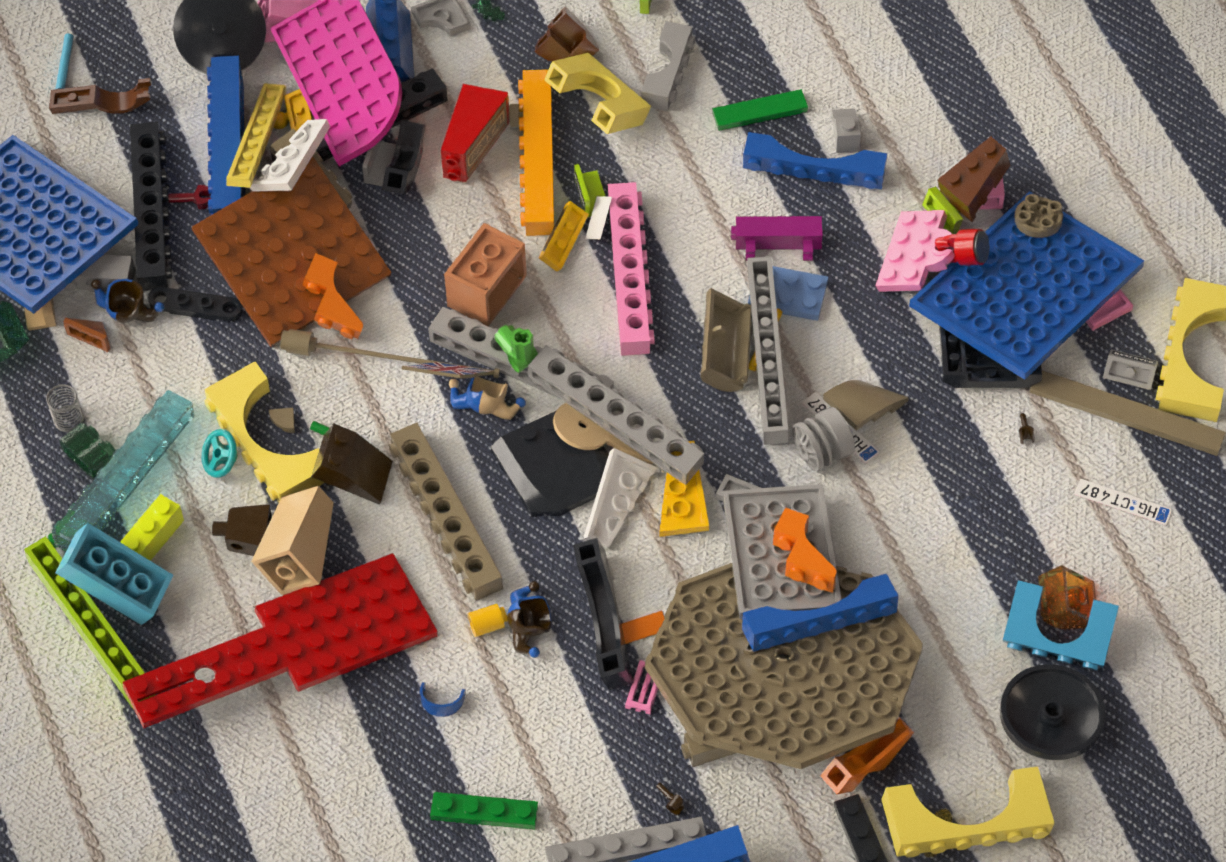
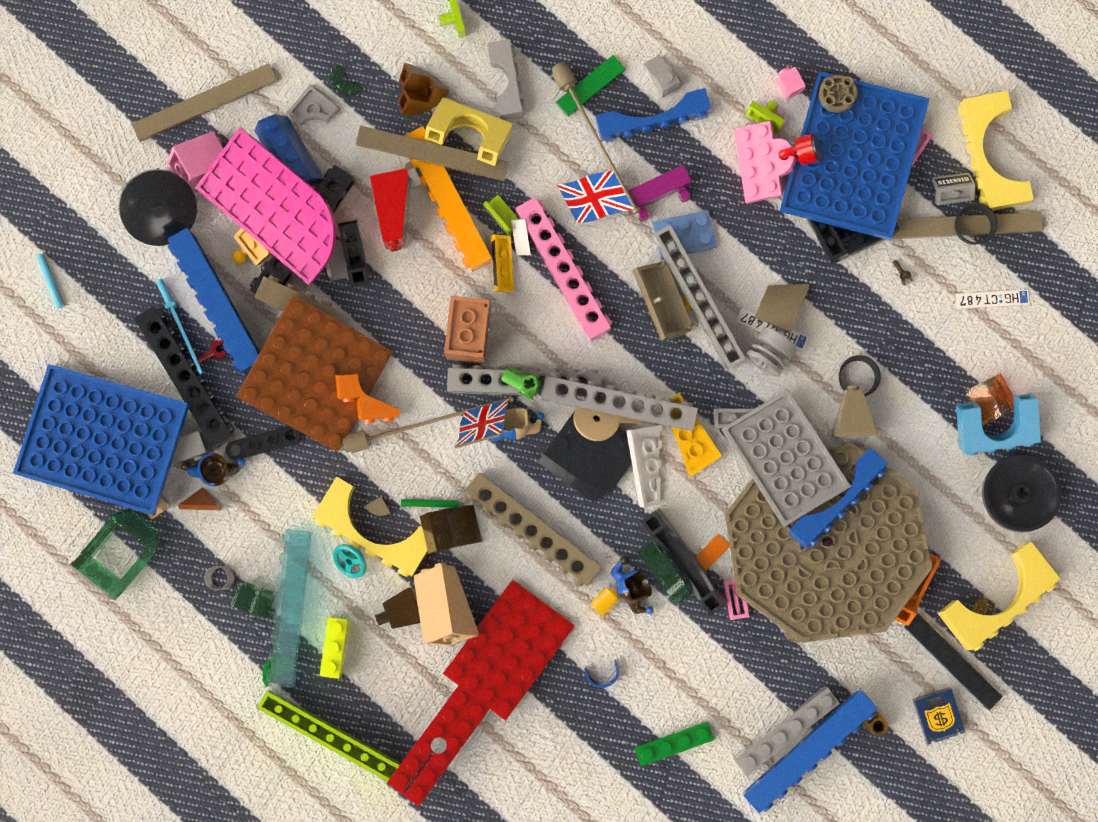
camera: 25 degrees left, 25 degrees up
(96, 98) = (95, 301): reddish brown piece -> none
(114, 574) = (332, 699): medium azure brick -> none
(176, 136) = (170, 305): none -> medium azure sword
(256, 135) = (238, 290): light yellow tile -> none
(292, 159) = (281, 317): white wing -> none
(543, 95) = (429, 153): none -> dark tan tile
(574, 620) = (664, 573): none -> clear green arch
(675, 802) = (799, 677): dark brown hand -> none
(714, 209) = (597, 193): none -> flag
(804, 561) = (810, 466): orange arch -> none
(884, 545) = (854, 415): none -> dark tan slope
(921, 492) = (871, 363): none -> black tyre
(974, 177) = (781, 85): reddish brown wedge -> none
(1139, 389) = (988, 212): none -> black tyre

